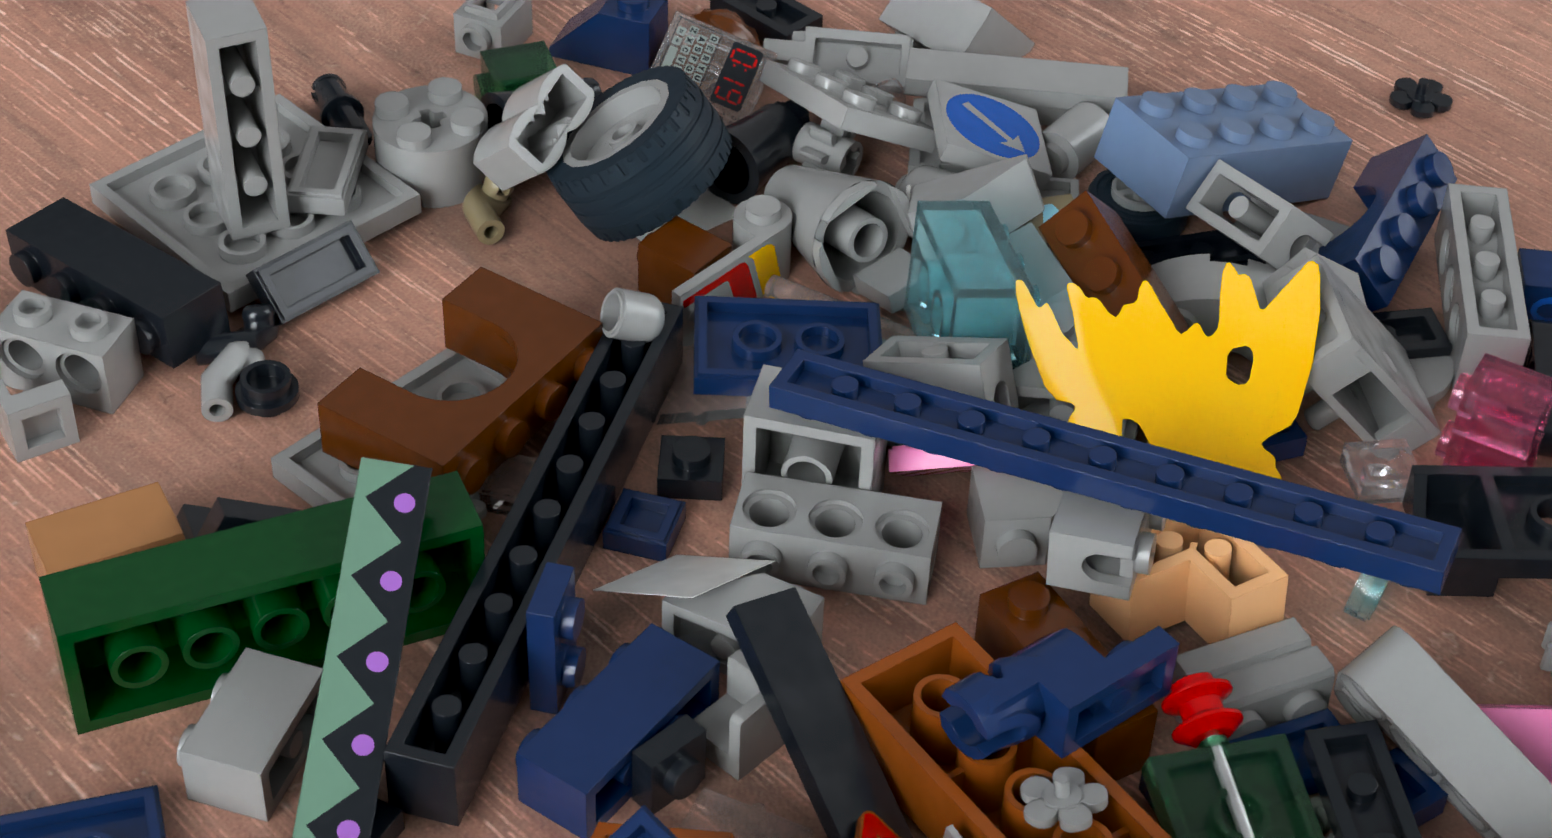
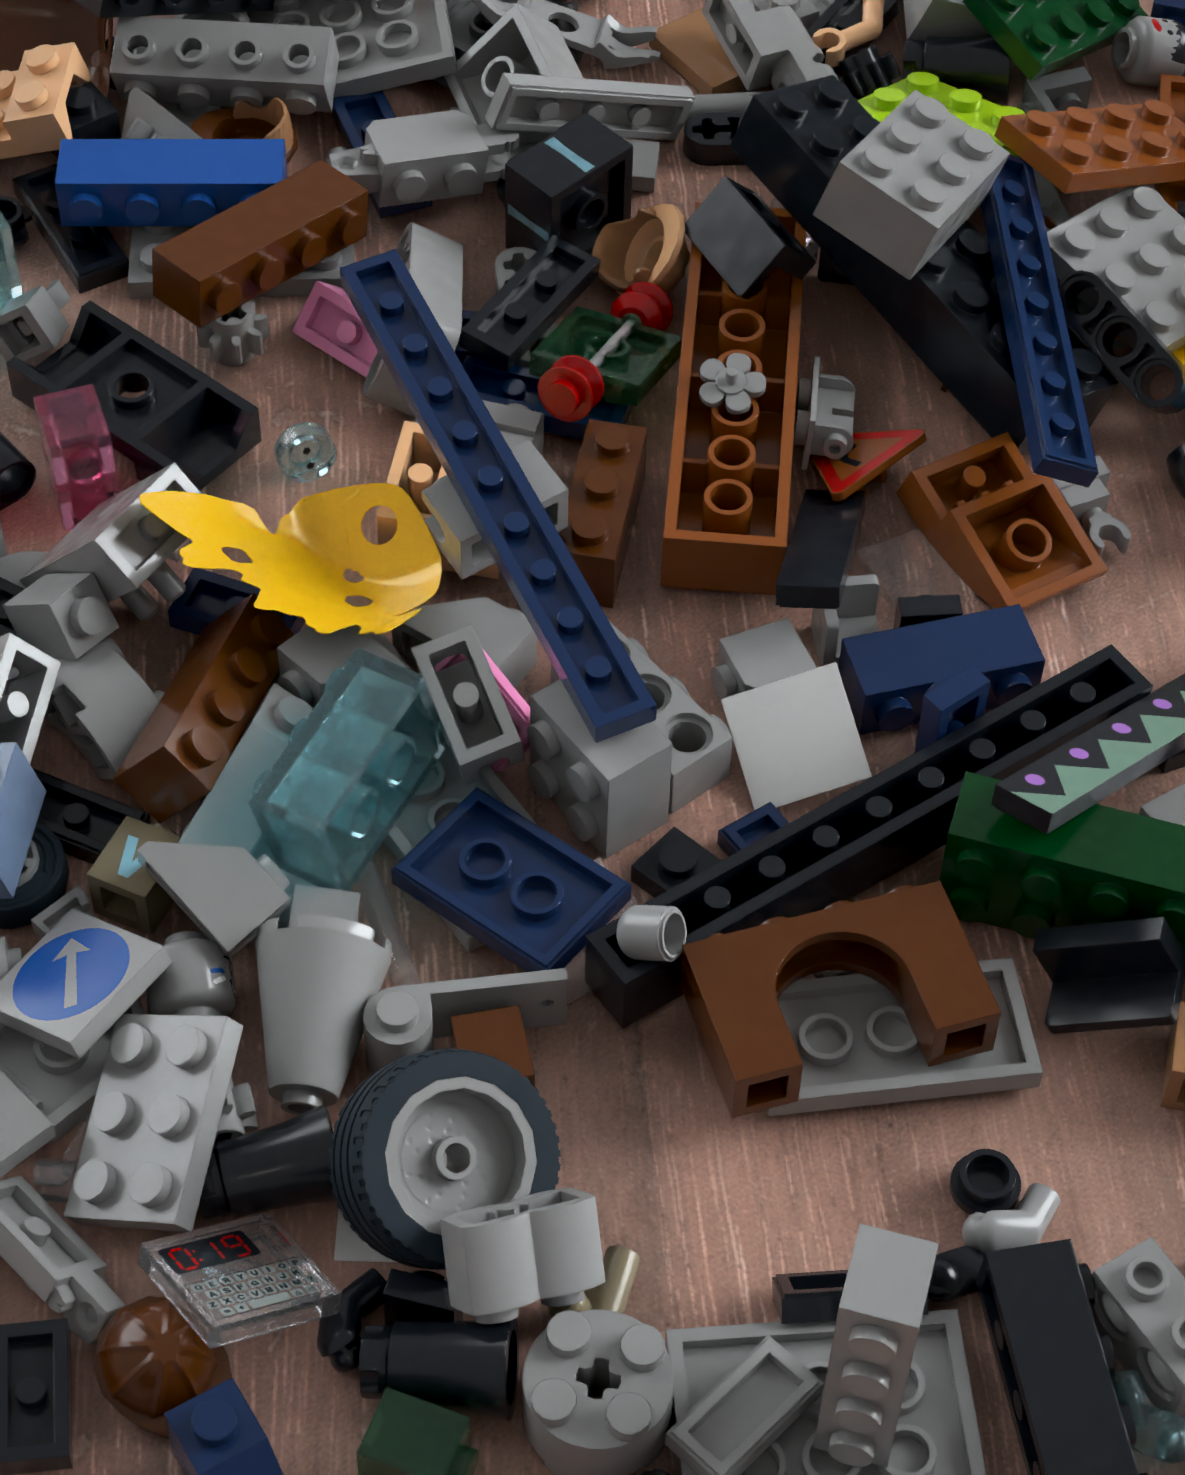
camera: 140 degrees left, 10 degrees up
(1058, 693) = (669, 417): dark blue plate -> none

